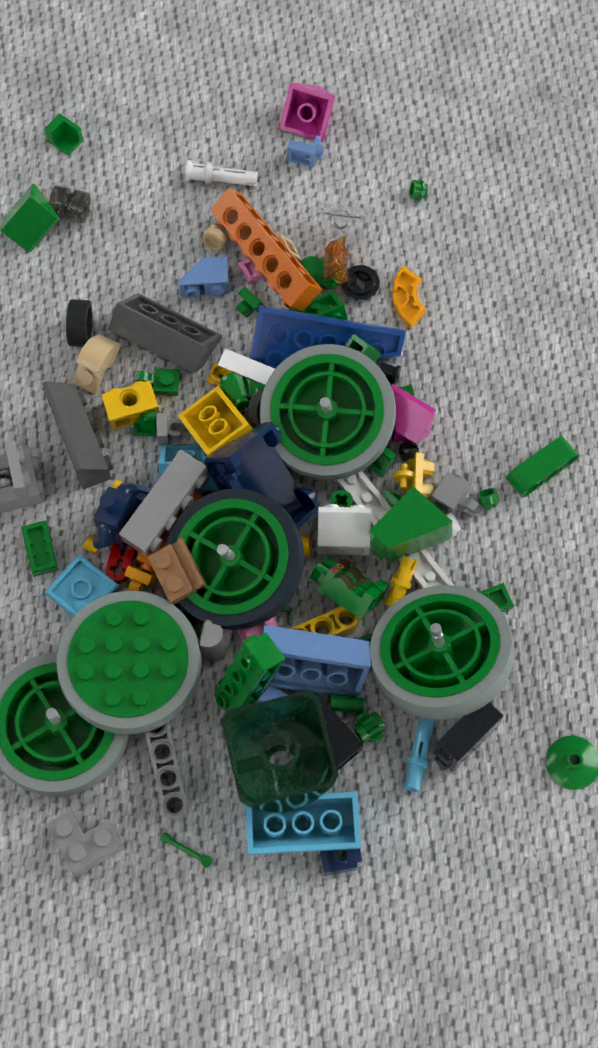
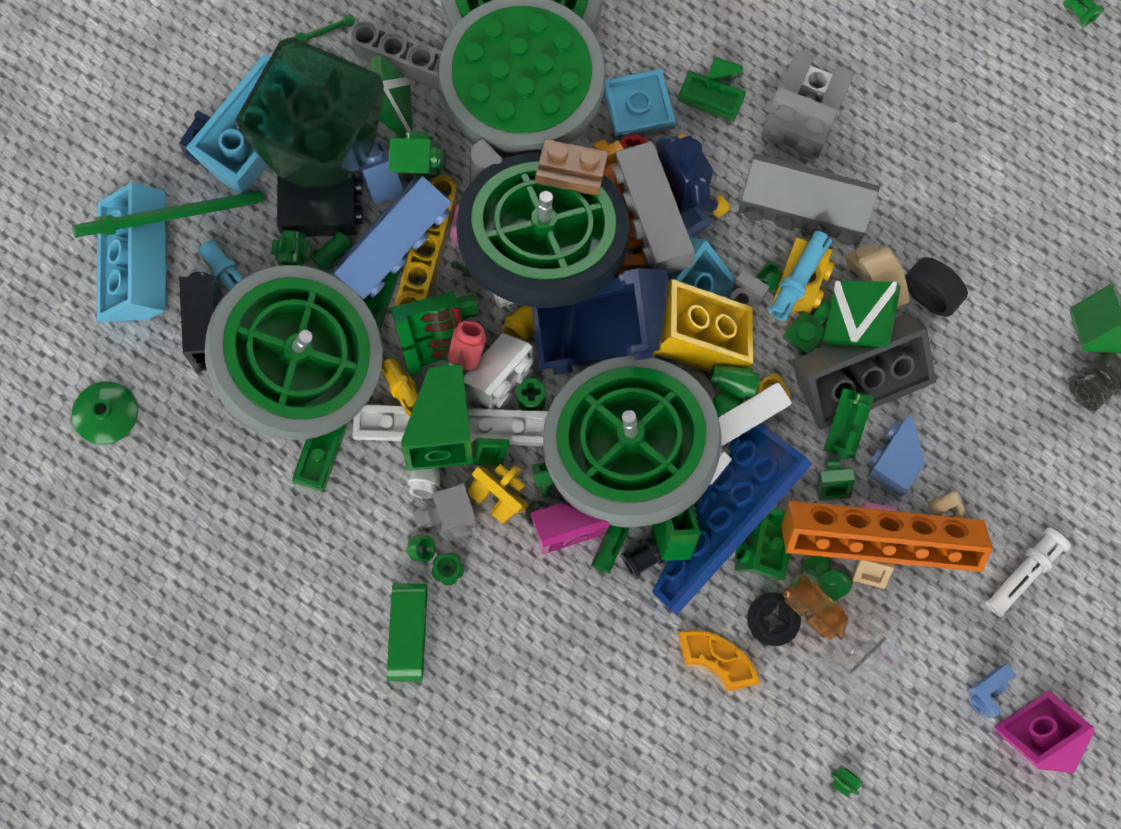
camera: 125 degrees right, 5 degrees up
(14, 551) = (724, 69): none -> green slope
(135, 345) = (862, 313): none -> green tile
(136, 396) = (794, 286): none -> medium azure pin
(204, 316) = (848, 423): none -> green hinge
(205, 748) = (396, 98): none -> green tile
(348, 551) = (467, 345): none -> coral brick
(460, 833) = (132, 260): none -> medium azure slope
(461, 840) = (108, 224): none -> green bar
(490, 470) = (441, 562): none -> green plate

